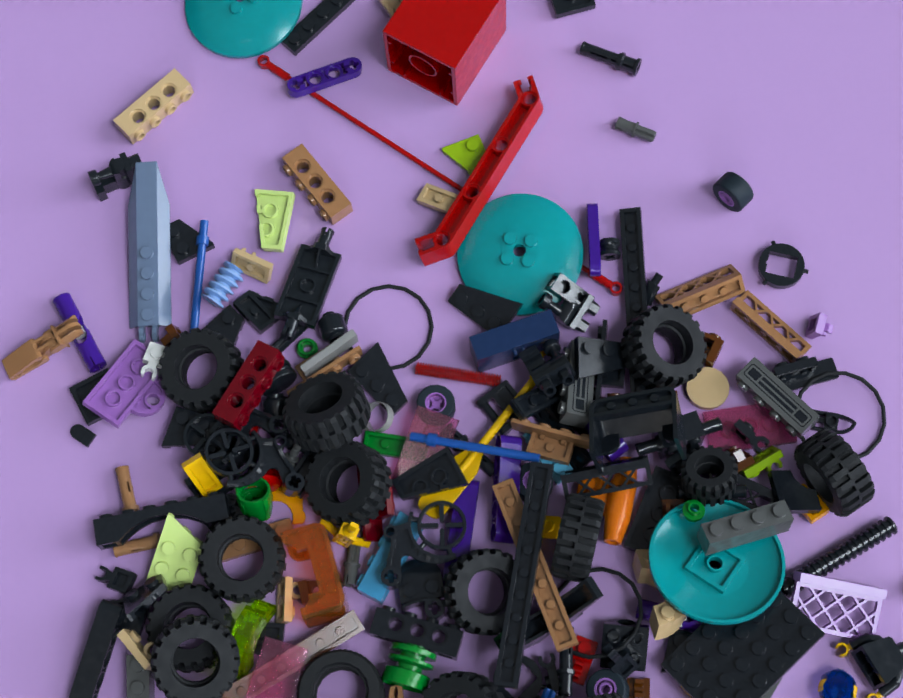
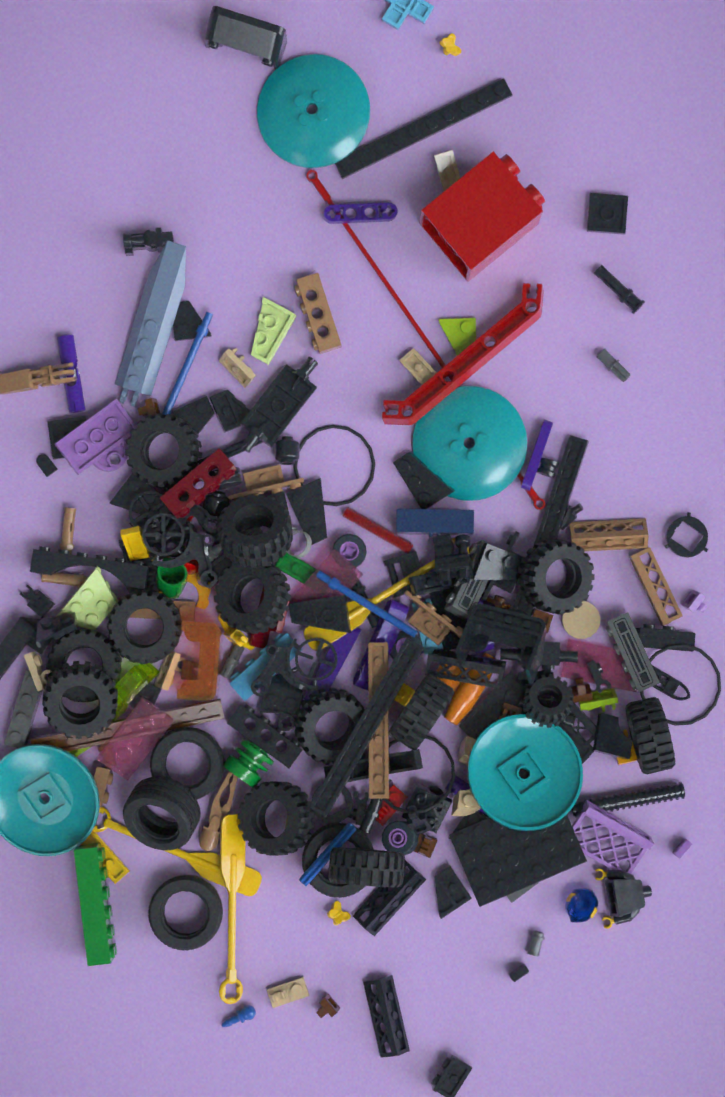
camera: 15 degrees right, 15 degrees up
(151, 358) = (127, 422): white plate -> none
(155, 96) = (225, 168): tan brick -> none
(222, 284) = (207, 377): light blue piece -> none
(307, 342) = (259, 453): green plate -> none
(329, 353) = (274, 475): light grey tile -> none
(575, 303) = (498, 507): black hips -> none
(689, 514) = (517, 725): green plate -> none
(714, 347) = (598, 591): reddish brown bracket -> none
(733, 191) = (672, 457): black wheel -> none
(744, 527) = (558, 755): dark grey brick -> none

